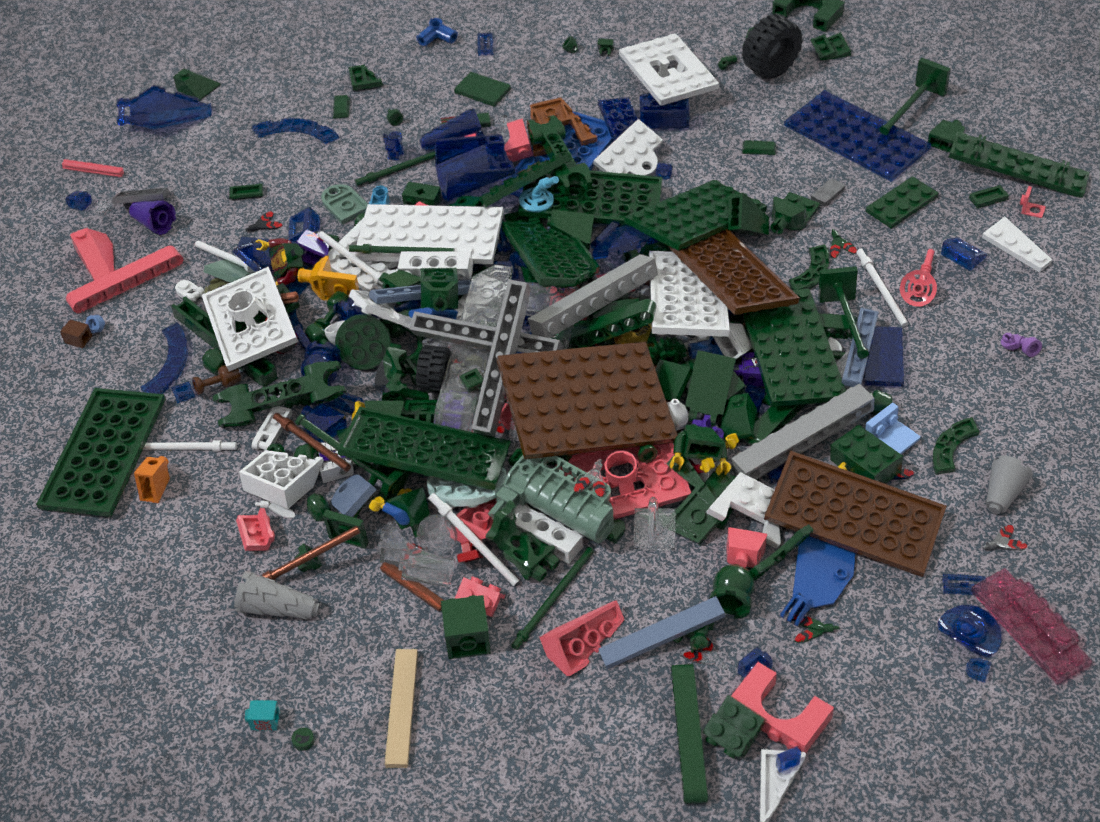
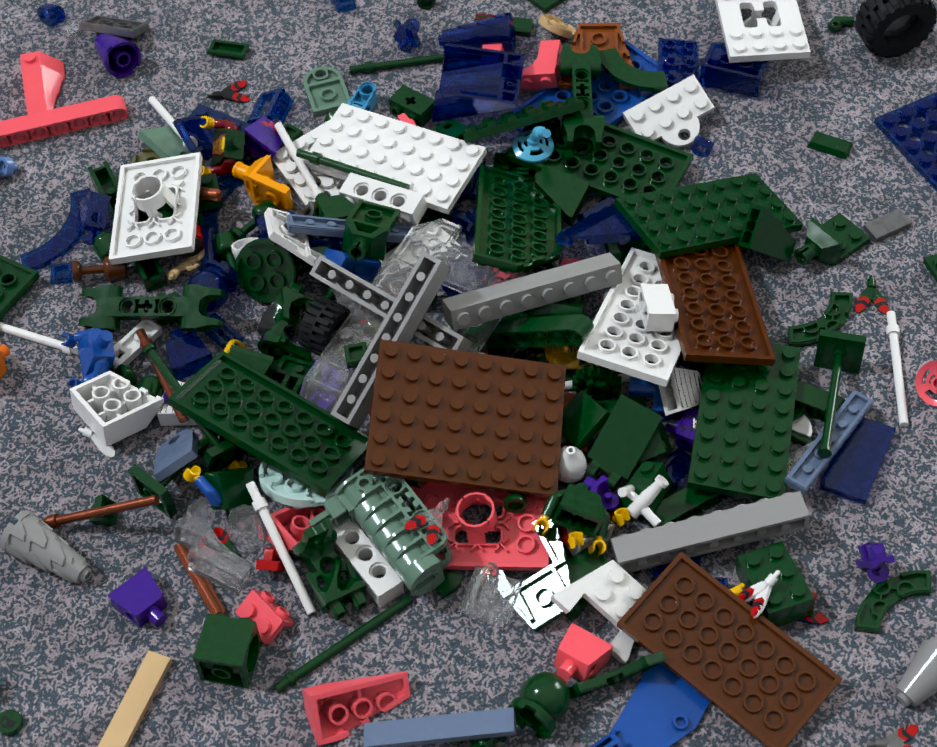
camera: 20 degrees right, 5 degrees up
(189, 289) = (117, 154): white plate -> none
(193, 339) = (92, 216): none -> clear blue torso
(244, 439) = (94, 351): none -> blue torso
(255, 531) = (62, 462): coral bracket -> none
(291, 355) = (185, 264): none -> tan piece
(317, 505) = (141, 453): dark green piece -> none
(371, 614) = (140, 600): none -> dark purple torso
(511, 111) = (556, 26): none -> tan tile
(589, 132) = (631, 76): none -> dark green tile
(696, 282) = (657, 307): none -> white brick
(743, 426) = (641, 502): none -> white piece
(863, 462) = (760, 592): none -> white piece
(881, 401) = (824, 519): dark green head -> none
(891, 431) = (821, 560): light blue bracket -> none
(928, 418) = (874, 559): none -> dark purple hips

